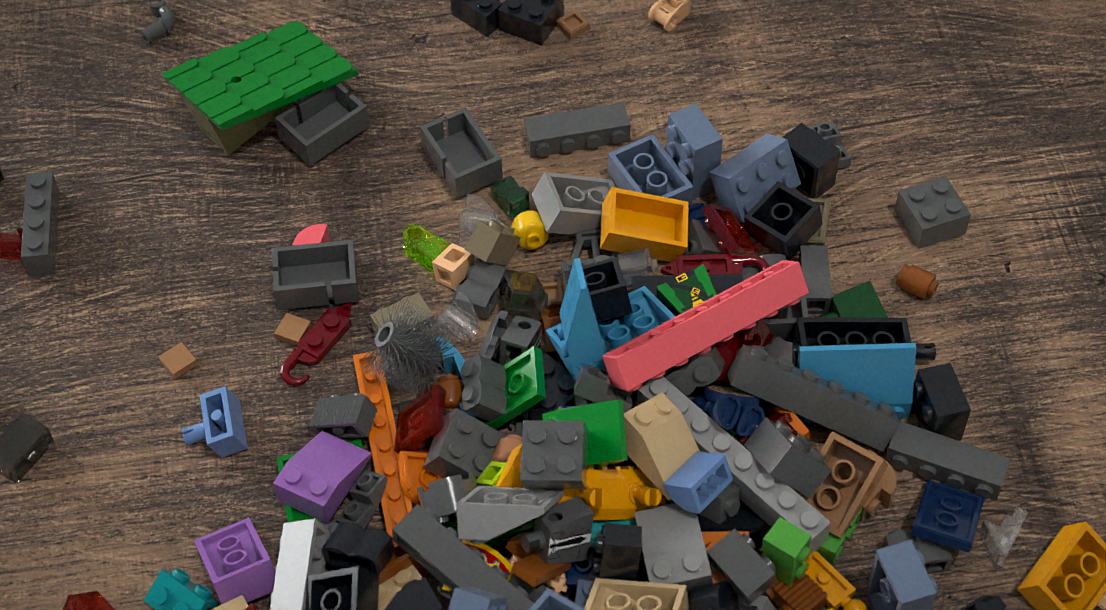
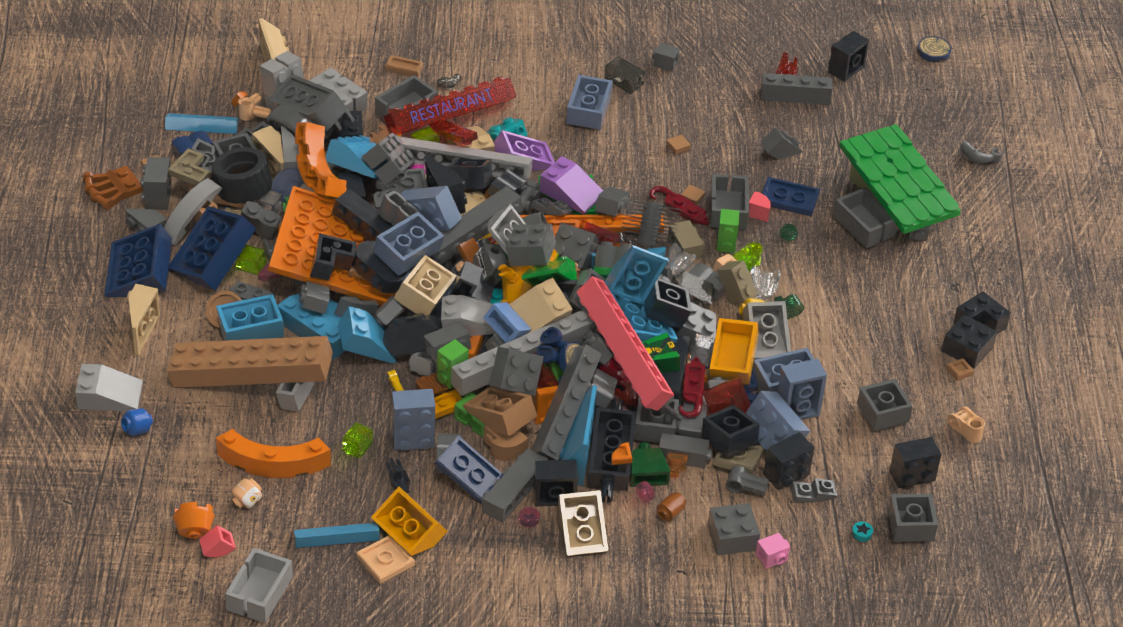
camera: 95 degrees right, 10 degrees down
(101, 482) = (589, 102): none -> sand blue brick
(172, 230) = (780, 144): none -> dark grey slope
(221, 423) = (621, 152): medium blue brick -> none
(274, 216) = (791, 196): none -> dark blue tile
(355, 209) = (789, 232): none -> clear green plate
(385, 266) = (728, 230): none -> bright green brick
(464, 156) = (830, 282): dark grey piece -> none
(577, 130) = (845, 350): dark grey brick -> none
(672, 80) = (884, 404): none -> dark grey brick
(766, 43) = (915, 462): none -> black brick
(842, 280) = (676, 463): none -> clear orange tile
(844, 212) = (741, 480): none -> dark grey piece
(851, 44) = (912, 517): none -> dark grey brick
(876, 96) = (862, 531): none -> teal tile
(878, 325) = (622, 454): none -> orange tile
(903, 309) = (645, 491): none -> clear pink tile
(952, 166) = (772, 550): none -> bright pink brick
(987, 370) = (583, 523): none -> tan slope
(988, 439) = (529, 517): none -> clear pink tile
(1000, 540) = (447, 498): clear slope -> none

